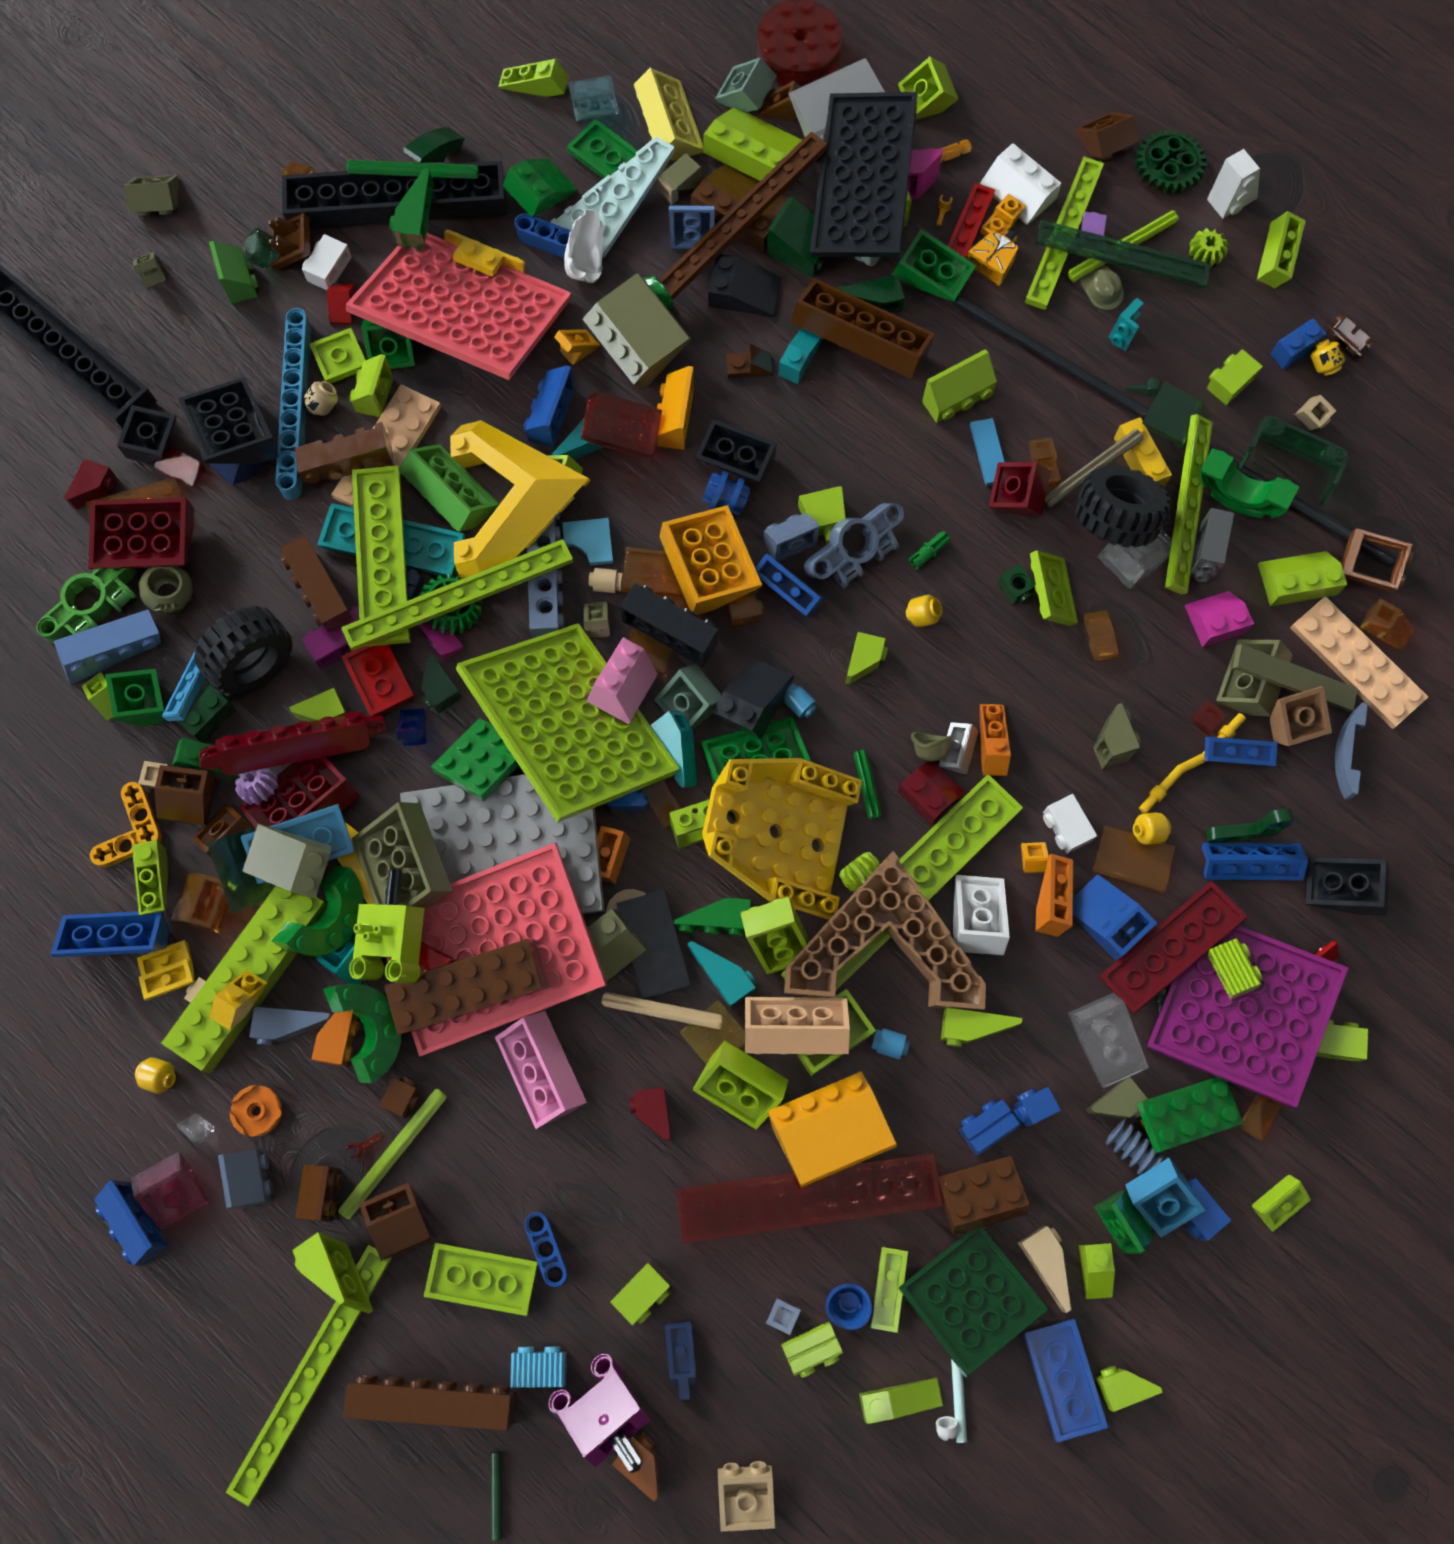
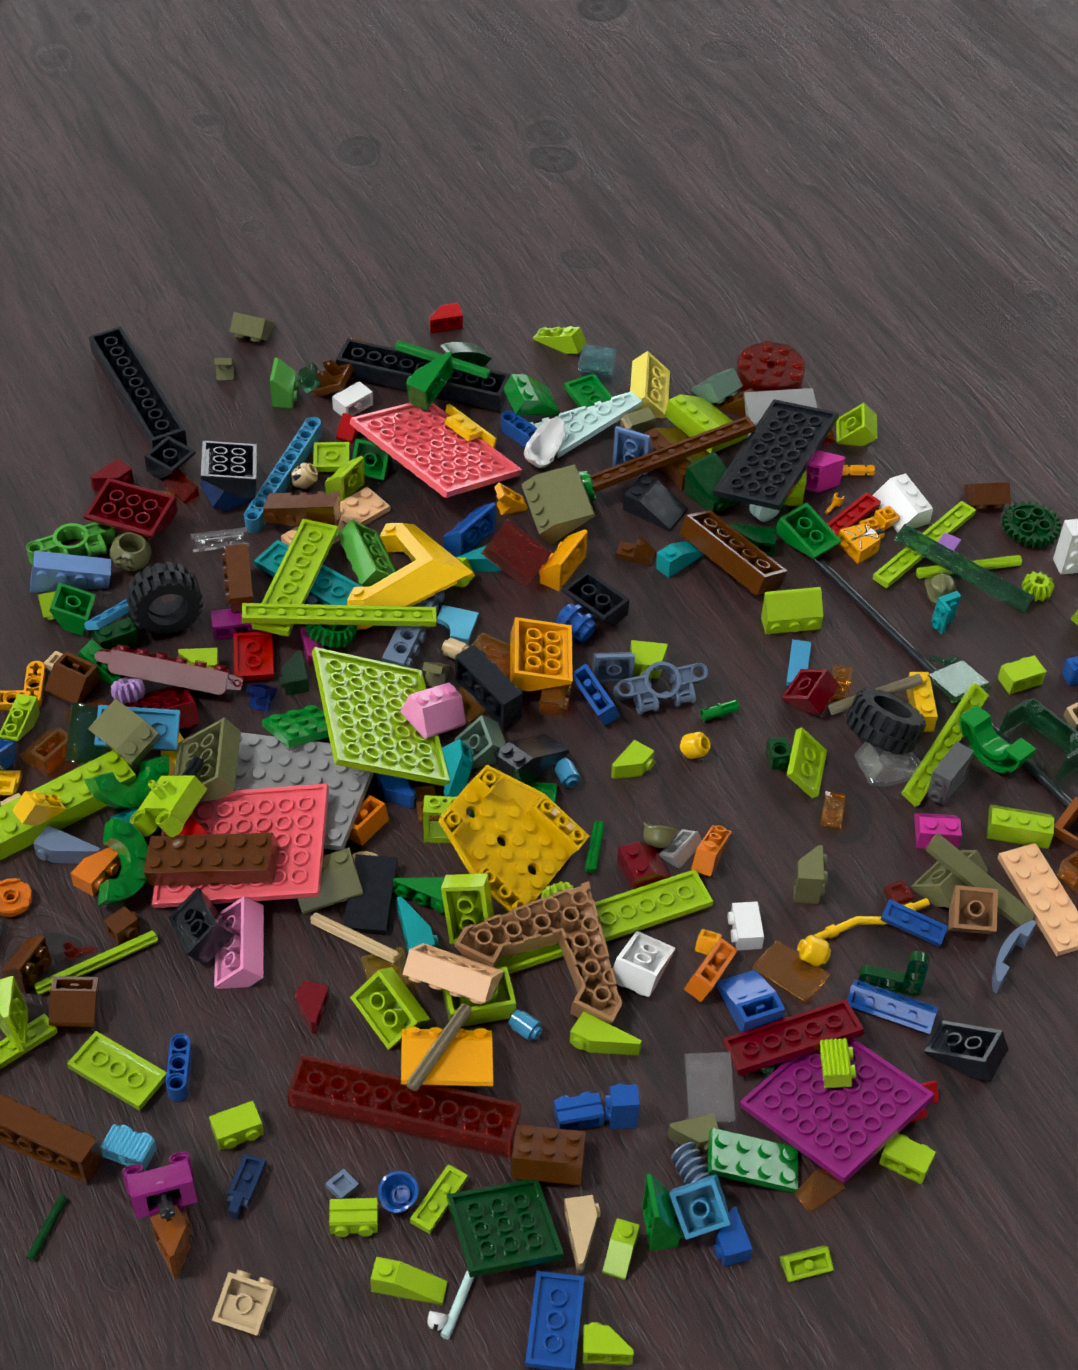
camera: 20 degrees right, 25 degrees down
(261, 527) = (218, 539): none -> clear plate
(385, 95) = (446, 318): none -> red slope
(489, 1069) = (200, 927): none -> black slope
(823, 1129) = (439, 1047): none -> dark tan axle

